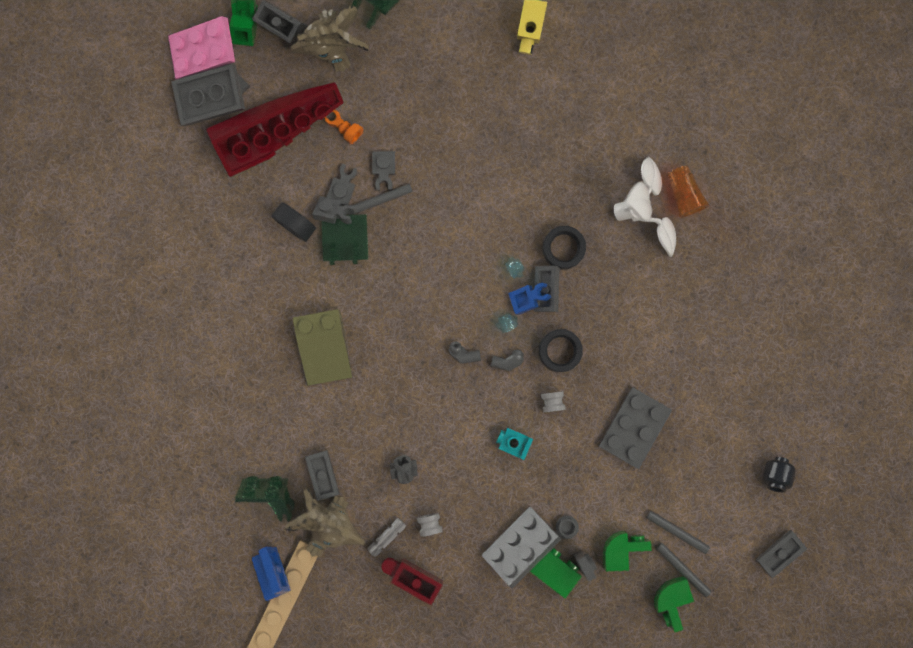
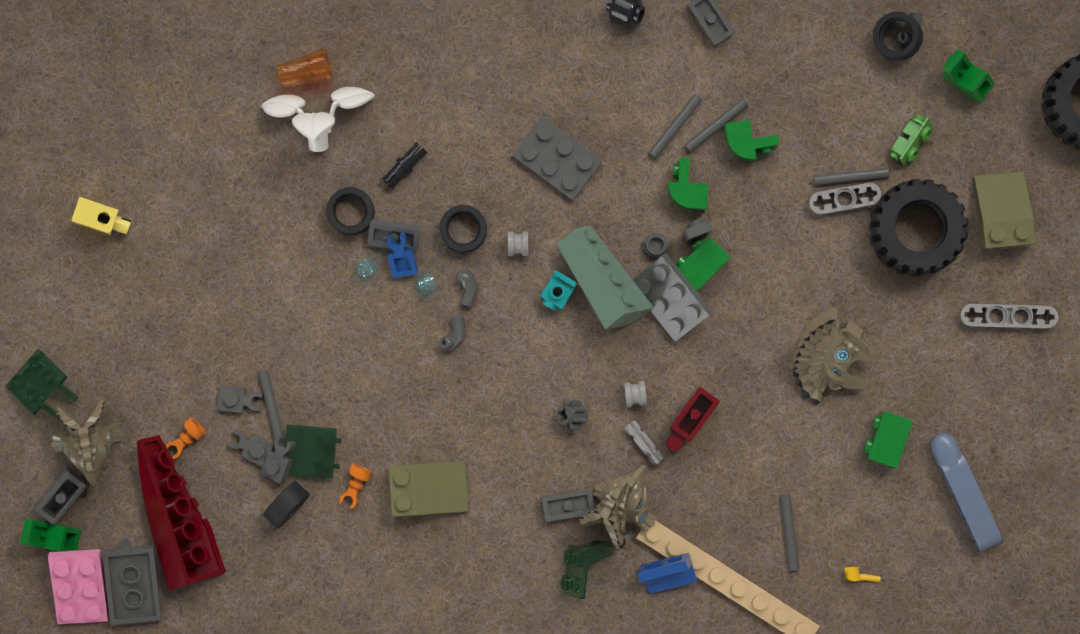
camera: 85 degrees left, 0 degrees up
(329, 284) = (360, 474): none -> orange piece
(530, 483) = (603, 279): none -> sand green wedge
(611, 291) = (404, 165): none -> black pin

